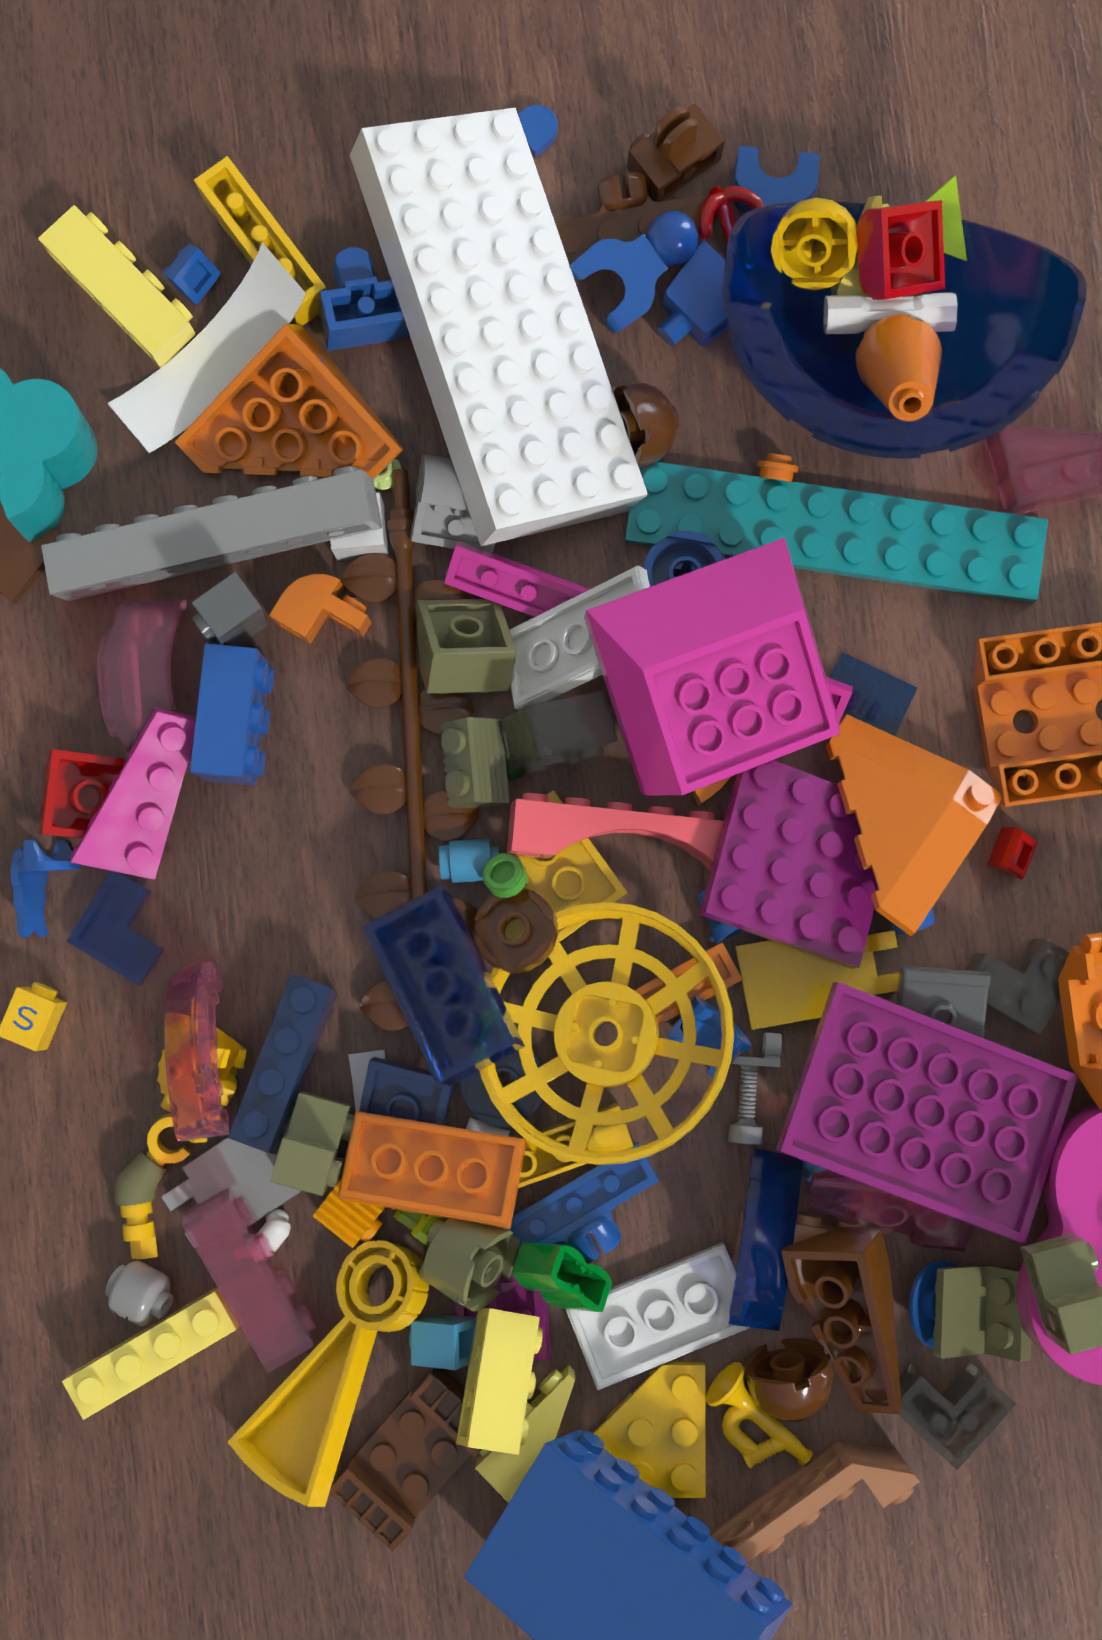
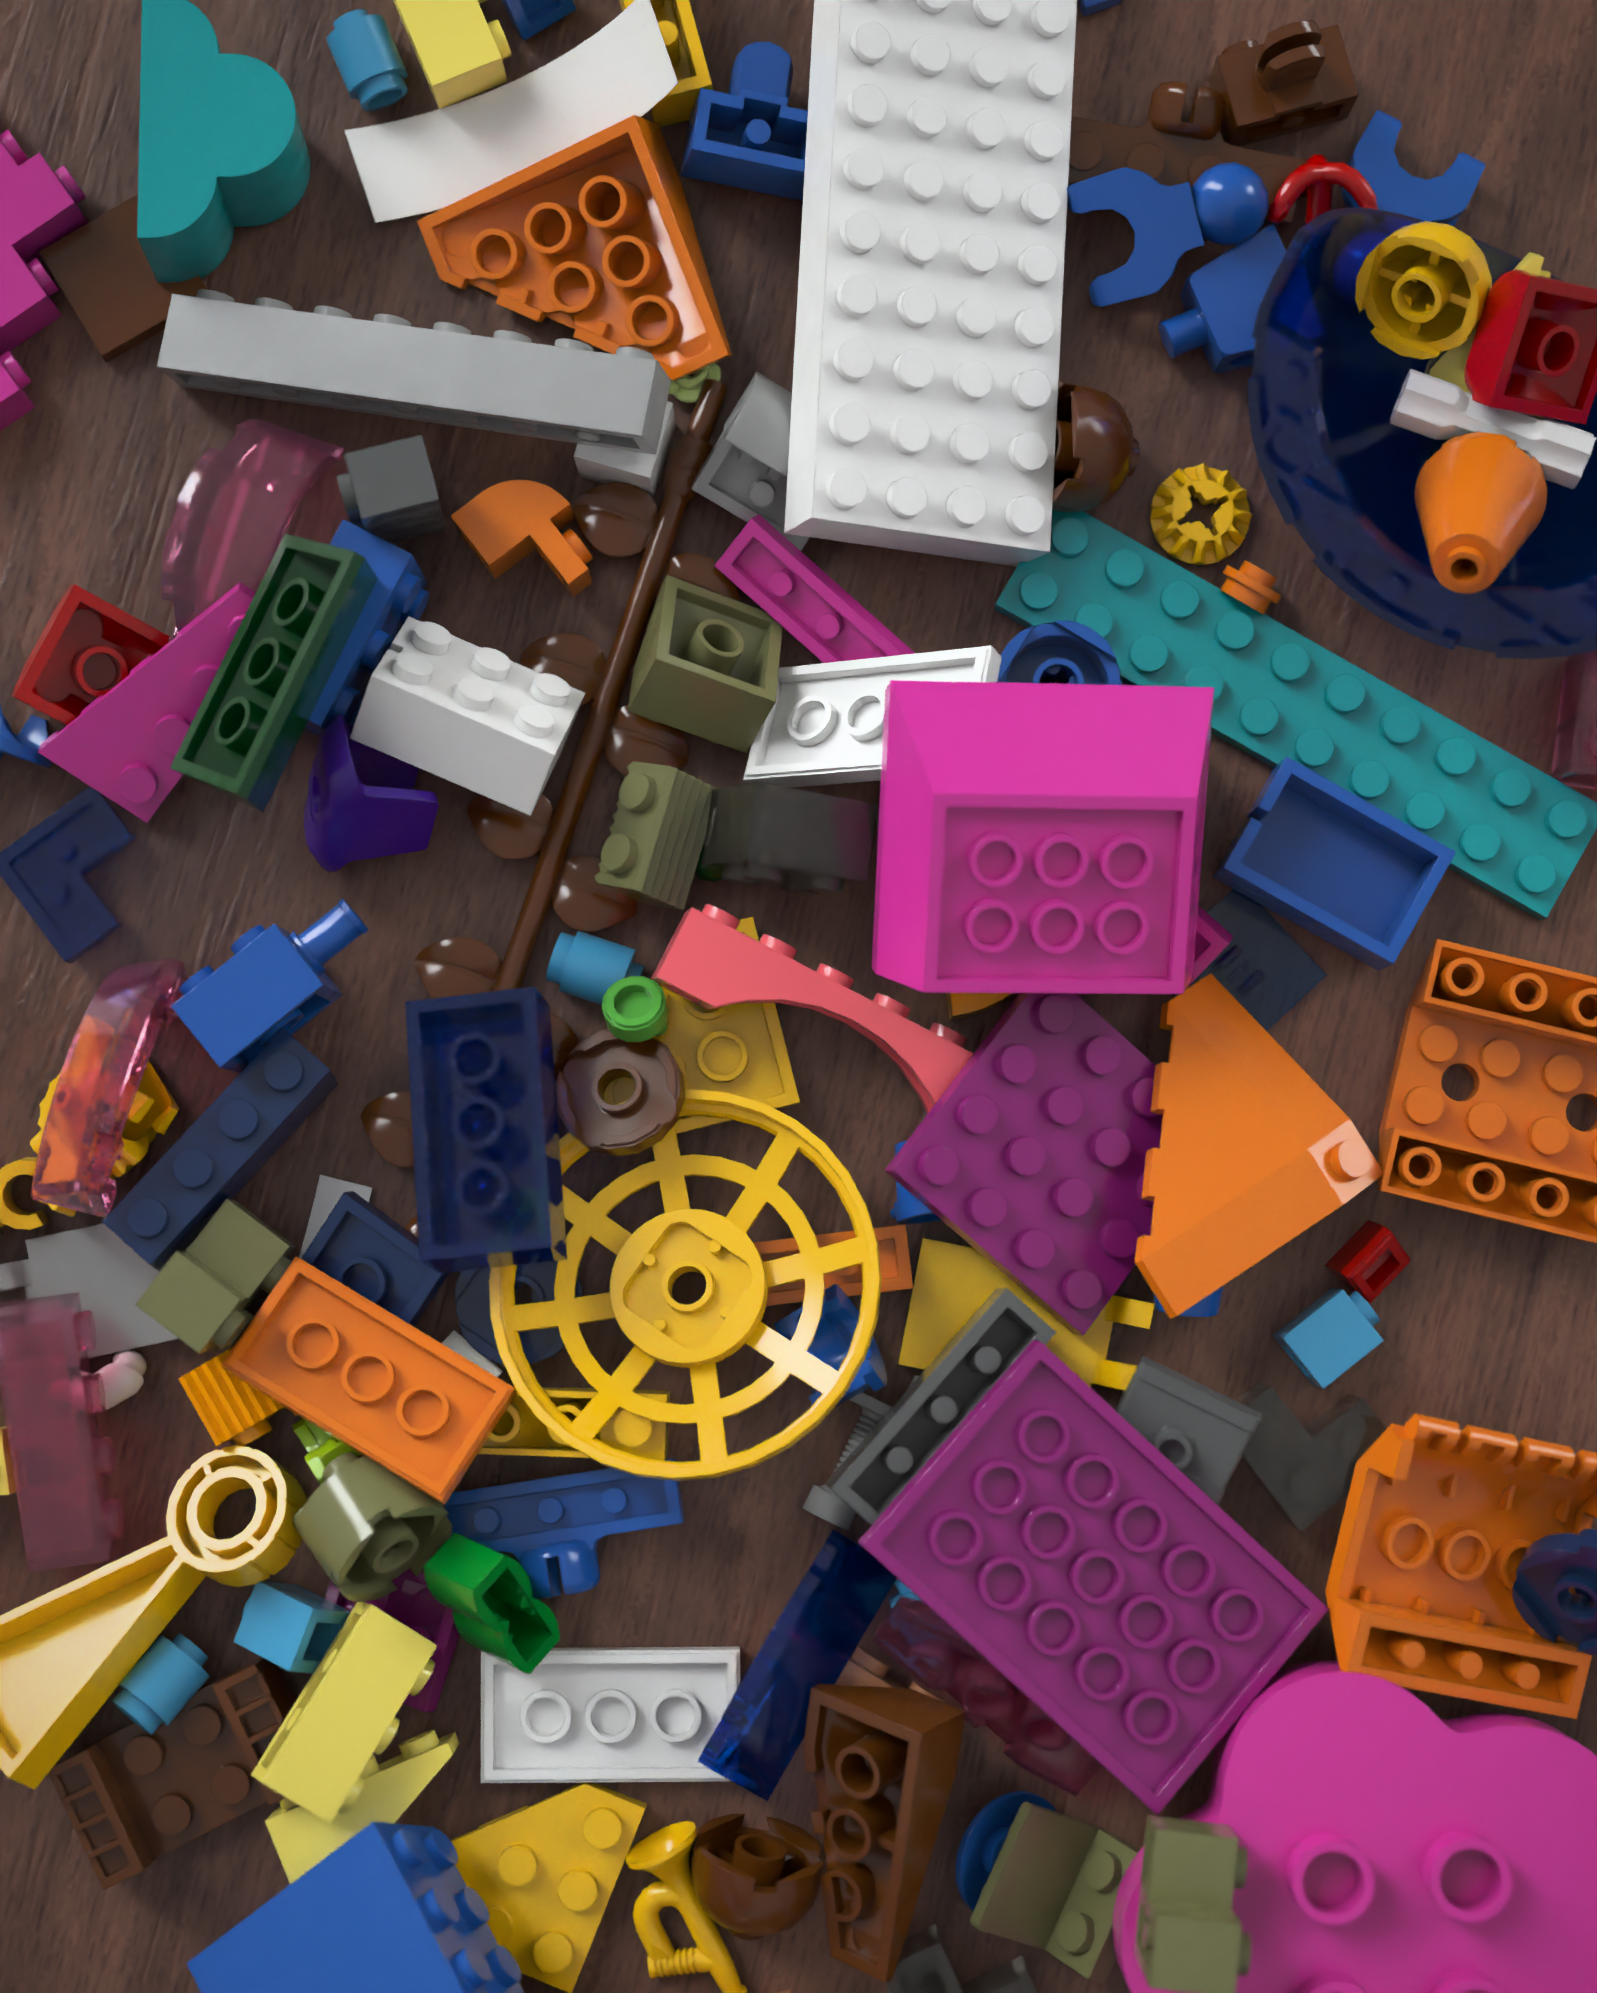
camera: 20 degrees right, 0 degrees up
(104, 353) = (368, 59): none -> dark azure brick
(200, 753) = (275, 669): none -> dark green slope
(271, 952) = (265, 987): none -> blue brick
(283, 811) = (362, 802): none -> dark purple piece
(329, 734) = (467, 714): none -> white piece
(376, 1408) = (162, 1682): none -> dark azure brick
(731, 454) = (1193, 541): none -> yellow gear
(787, 1045) = (937, 1403): none -> dark grey brick
(897, 618) = (1334, 864): none -> blue piece
(1008, 908) = (1330, 1336): none -> dark azure brick

